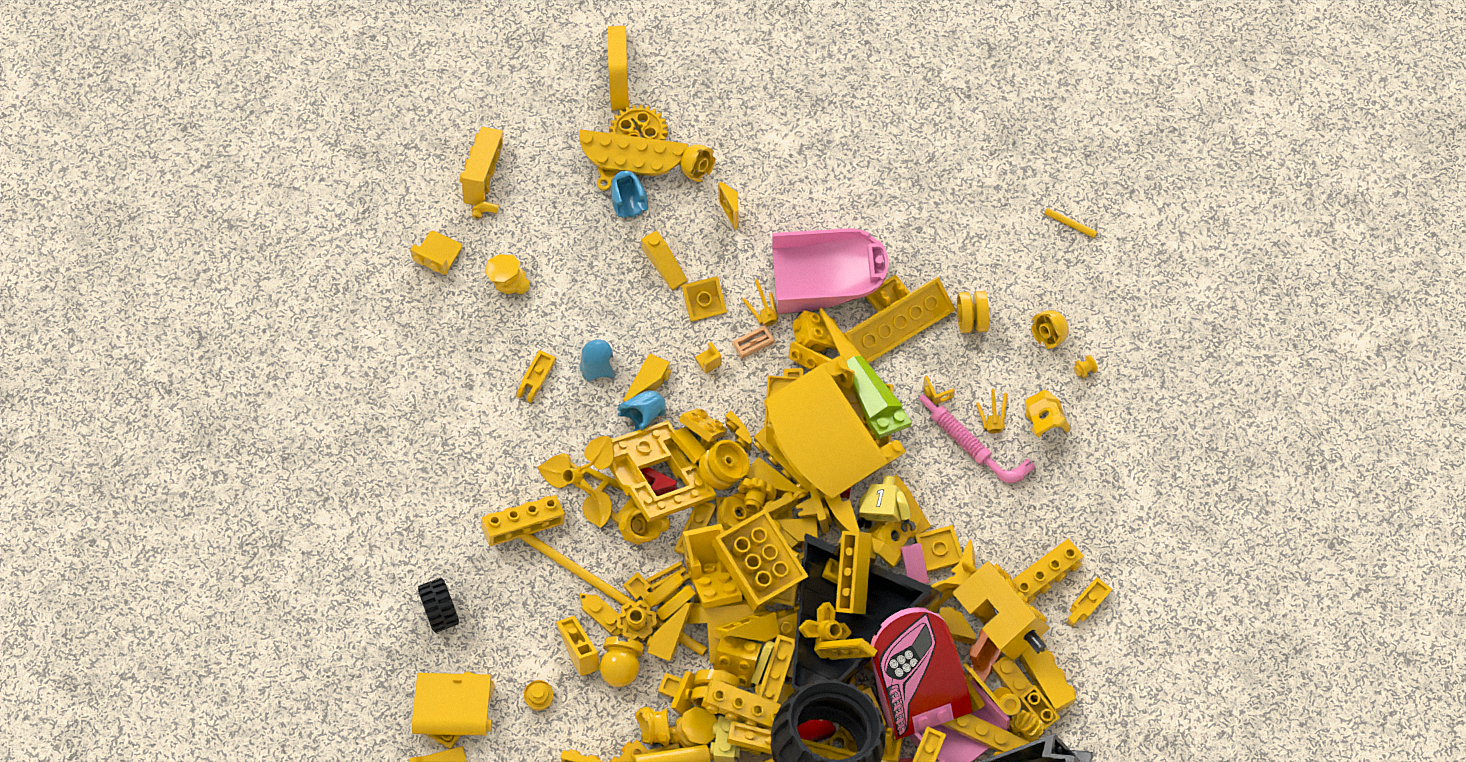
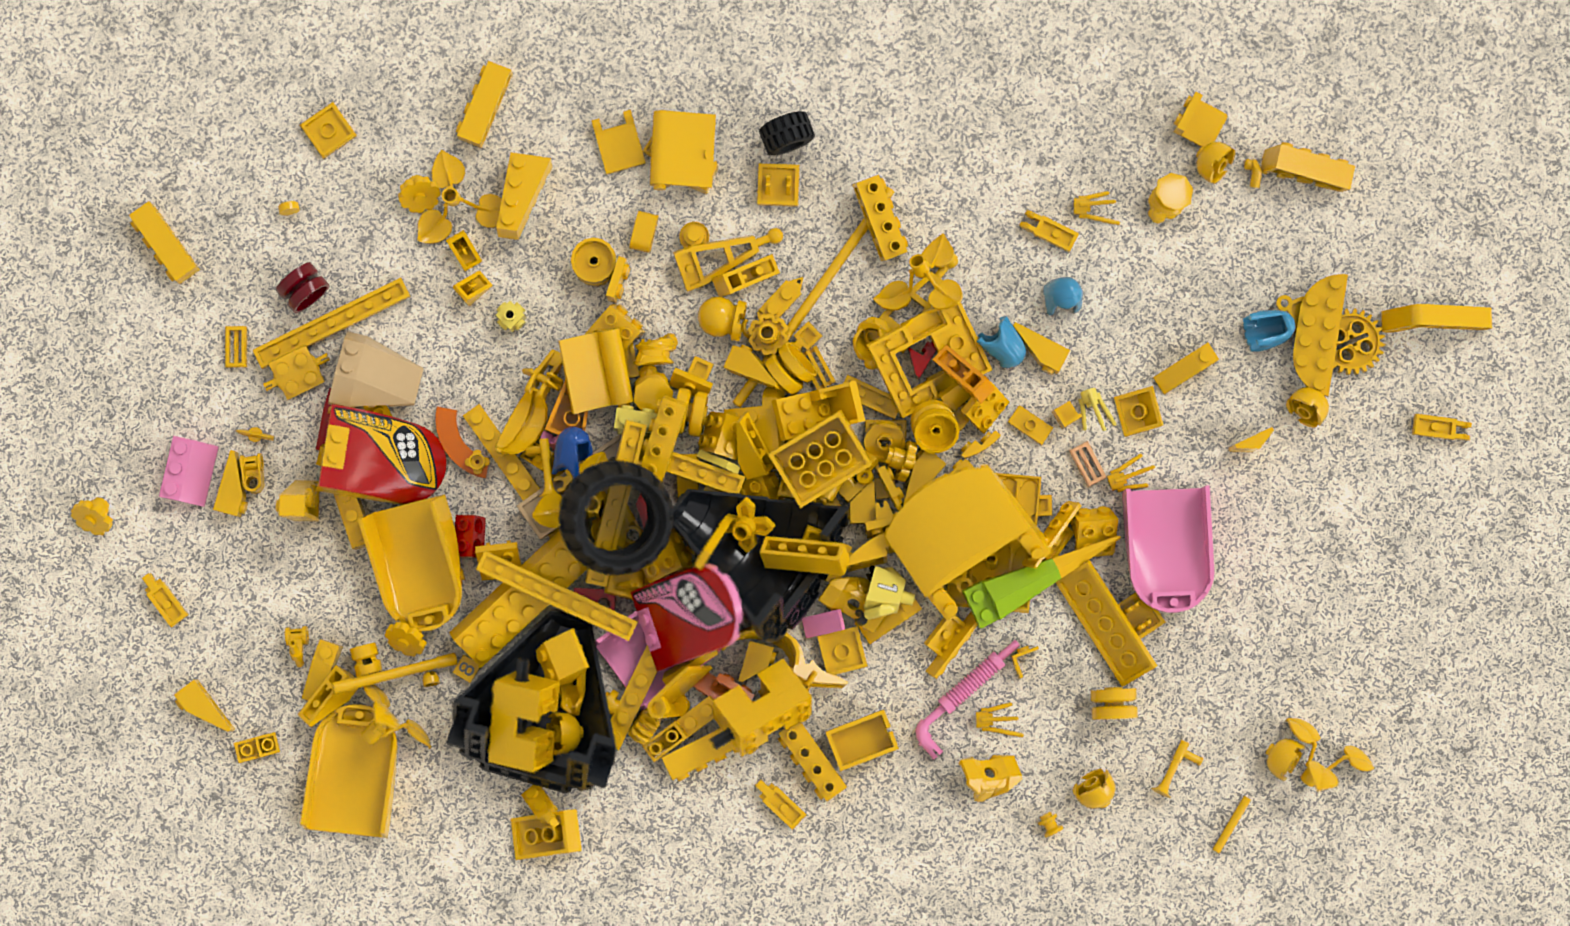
camera: 90 degrees right, 20 degrees up
(473, 239) = (1213, 160): none -> yellow cylinder
(487, 617) = (778, 184): none -> yellow plate
(513, 348) = (1083, 205): none -> yellow plant
(532, 743) = (644, 231): none -> yellow beam
(565, 697) = (690, 267): none -> yellow plate
(674, 435) = (964, 374): none -> light orange slope
(693, 338) = (1090, 399): none -> light yellow plant
(712, 66) = (1439, 427): none -> yellow hinge
(718, 390) = (1030, 425): none -> yellow plate
(924, 455) = (947, 640): none -> yellow bracket
(1009, 179) = (1283, 757): none -> yellow cylinder
(1010, 262) = (1181, 752): none -> yellow piece
(1018, 155) = (1315, 773): none -> yellow plant
(1023, 527) = (861, 740): none -> yellow piece

